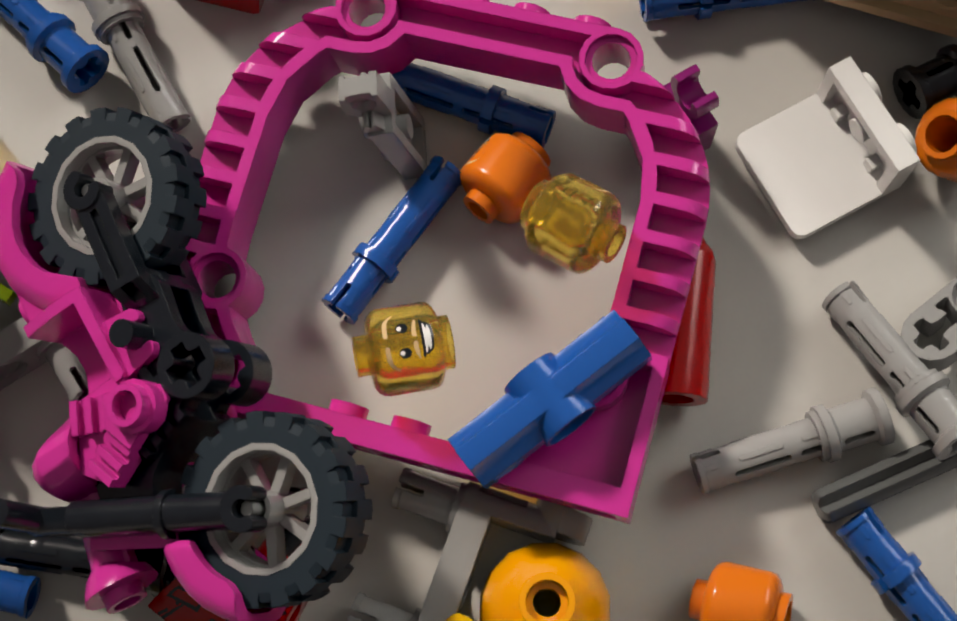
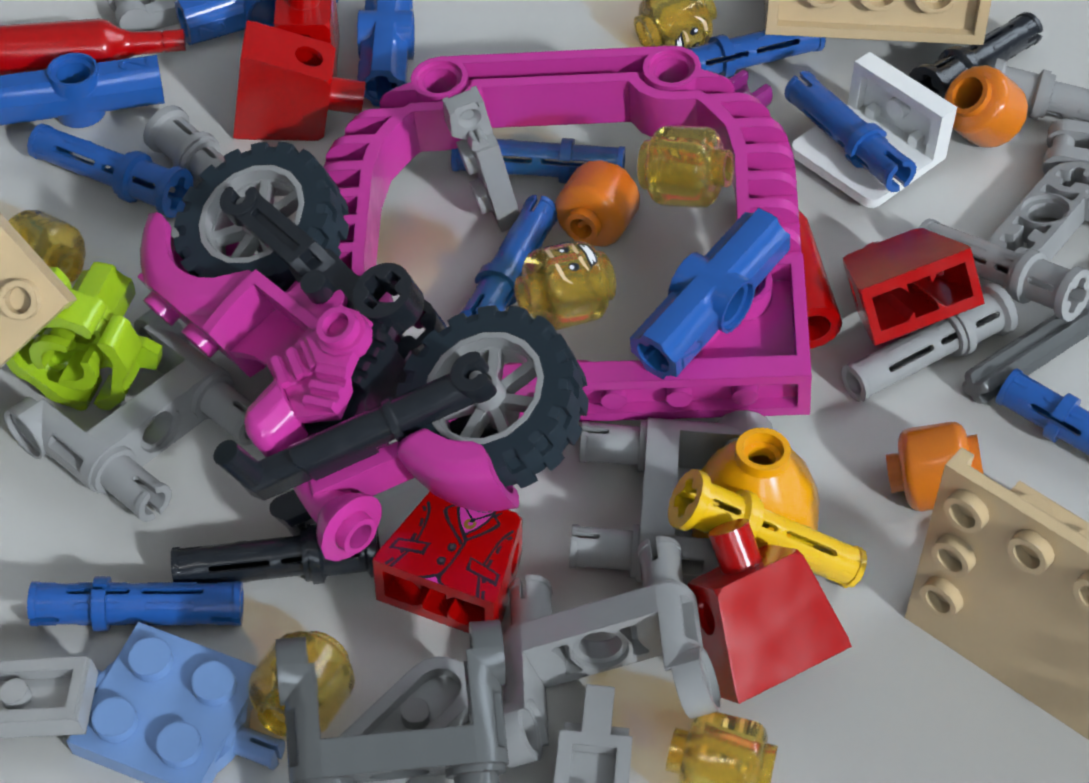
camera: 20 degrees left, 25 degrees down
(786, 378) = (902, 283): none -> red torso
(808, 167) = (861, 140): none -> blue pin

